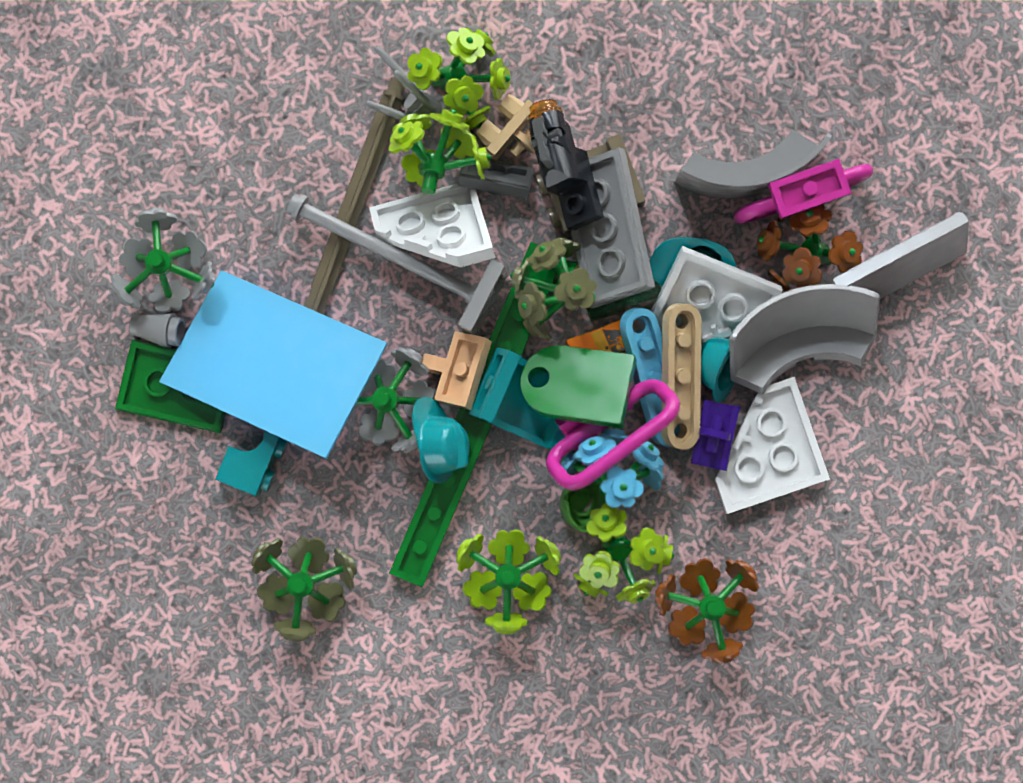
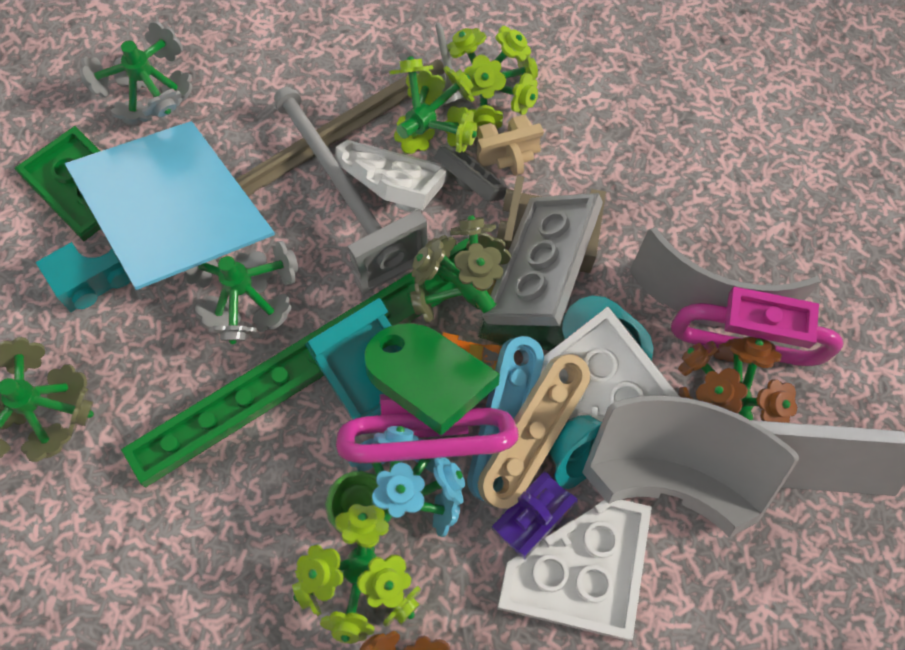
camera: 25 degrees right, 20 degrees down
(159, 328) = (102, 128): light grey cone -> none
(440, 440) = (254, 345): teal piece -> none
(460, 370) = (325, 303): light nougat plate -> none
(485, 587) = (204, 525): lime plant -> none
(562, 165) = (537, 184): black plate -> none

